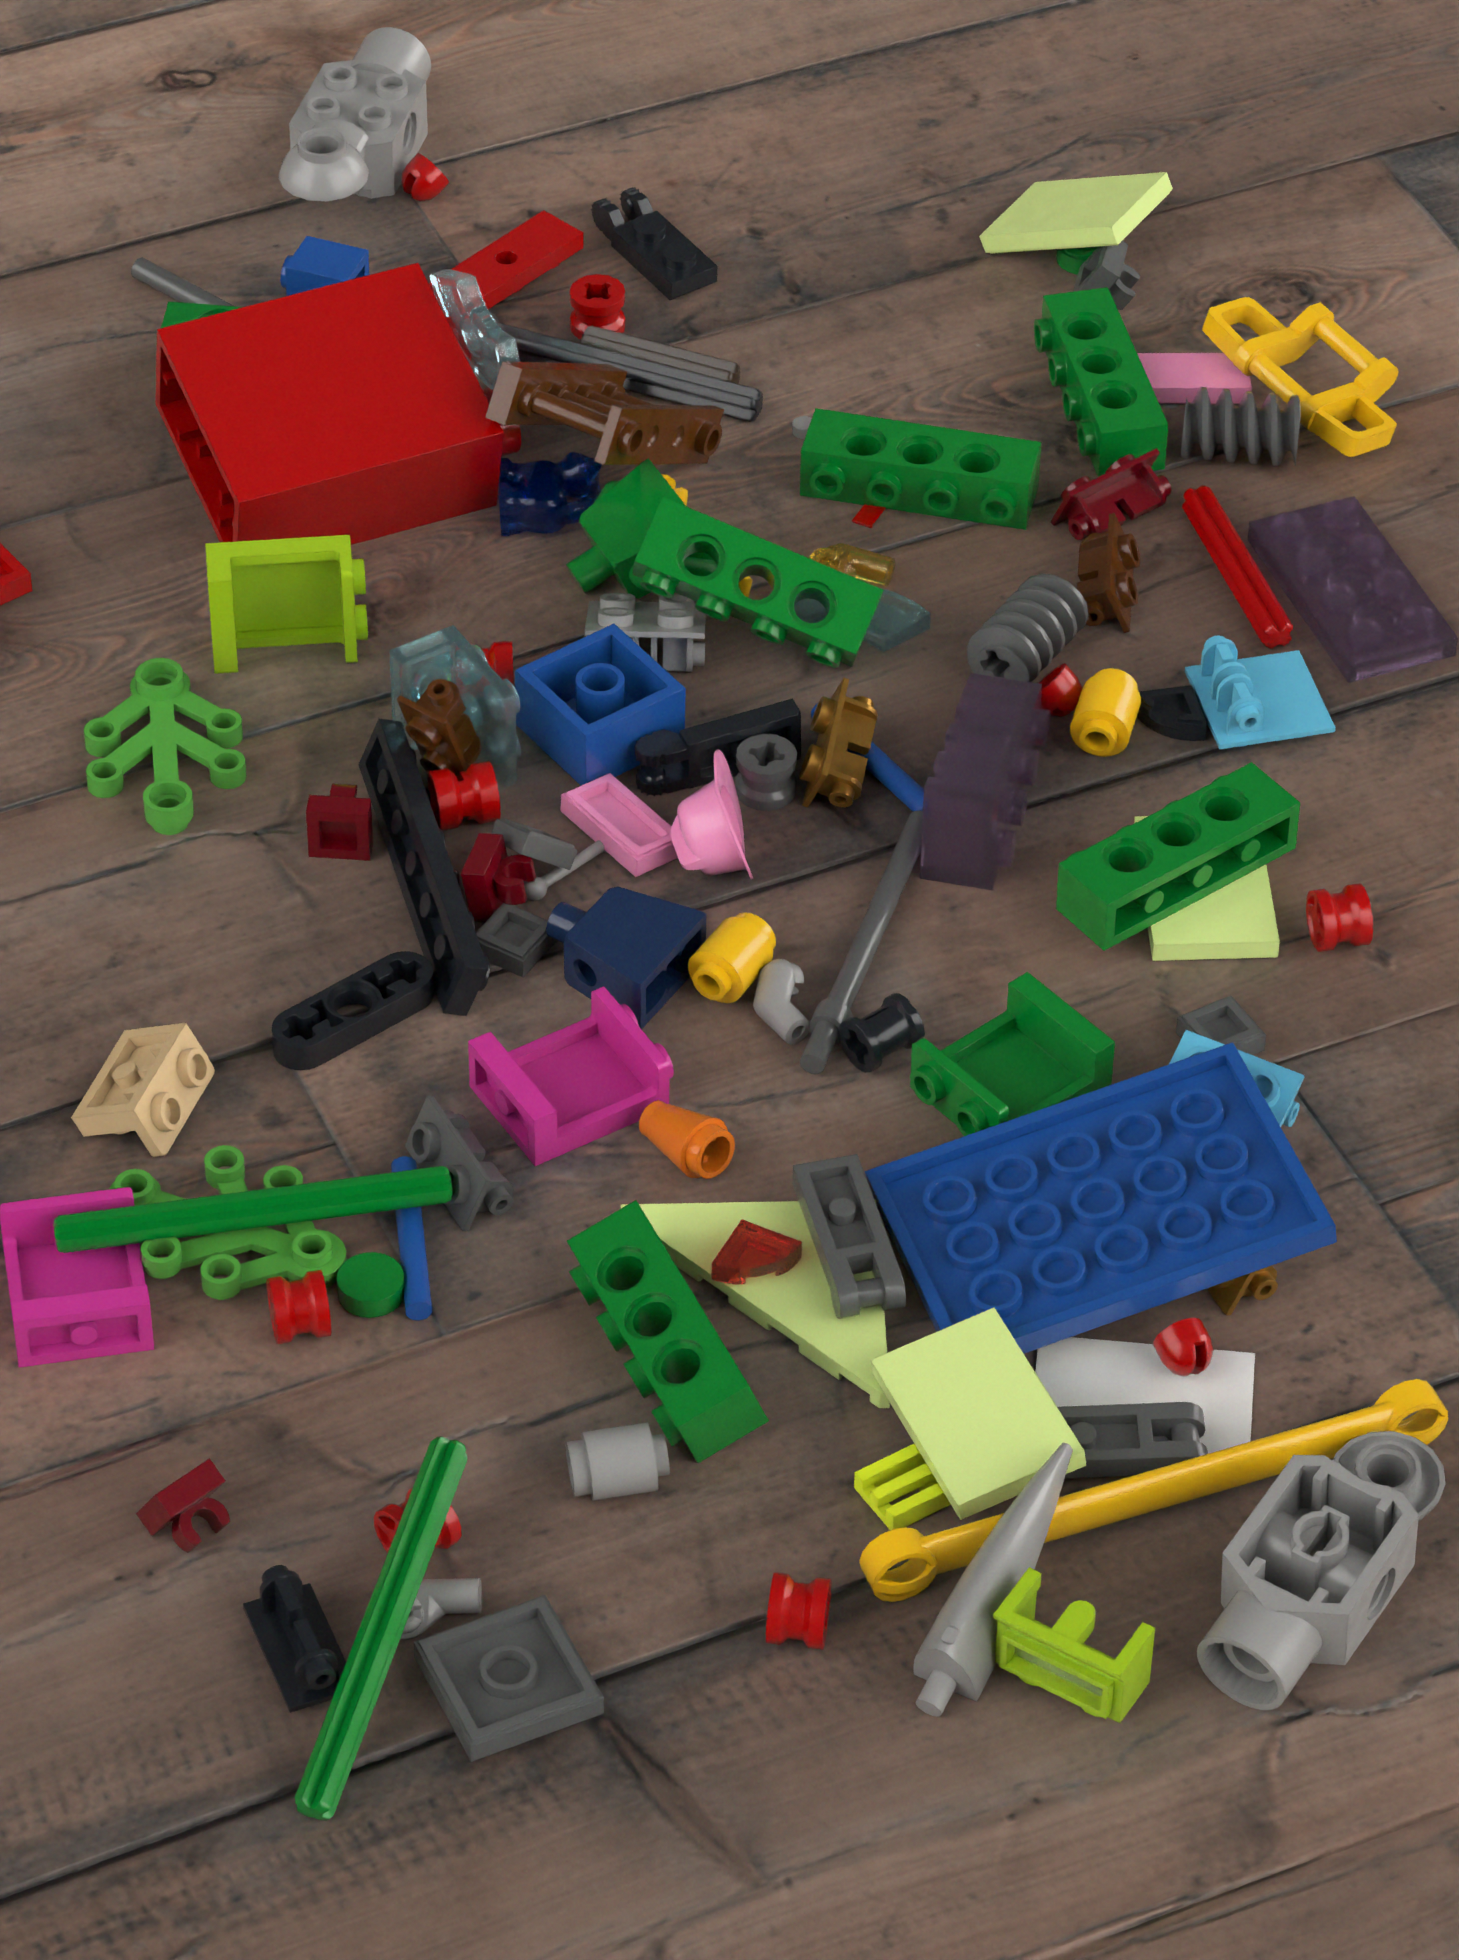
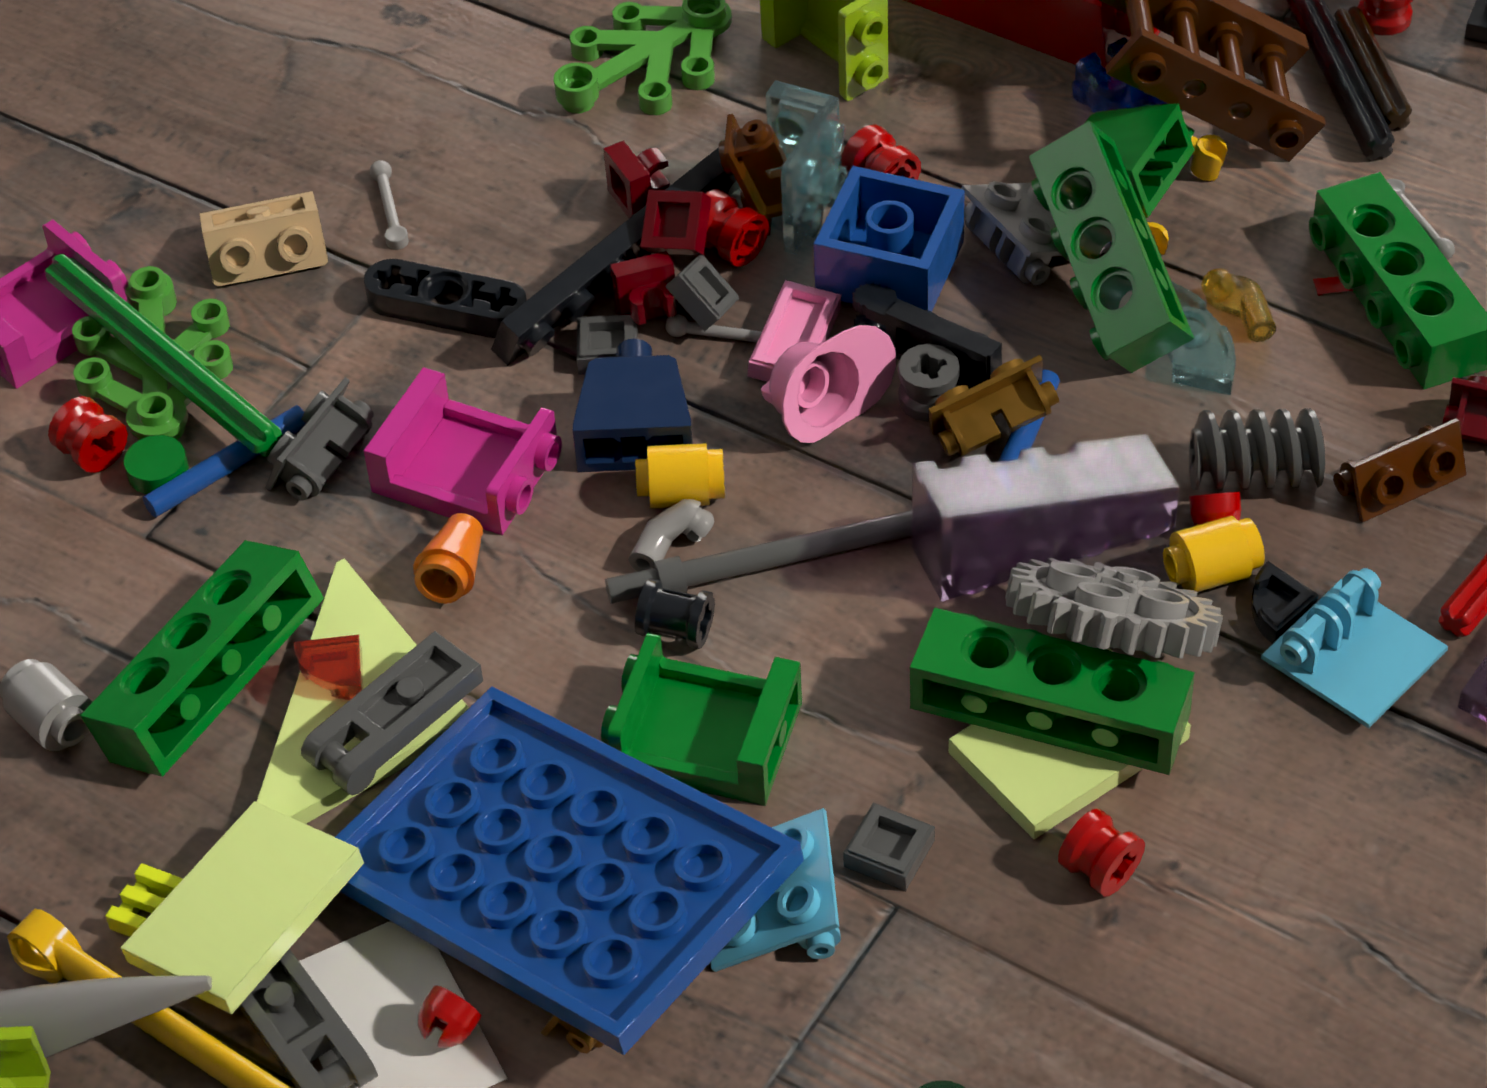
camera: 60 degrees right, 5 degrees up
(227, 1010) = (396, 235): none -> light grey hinge
(463, 805) = (676, 222): none -> dark red tile
(1137, 776) = (1114, 608): none -> light grey gear

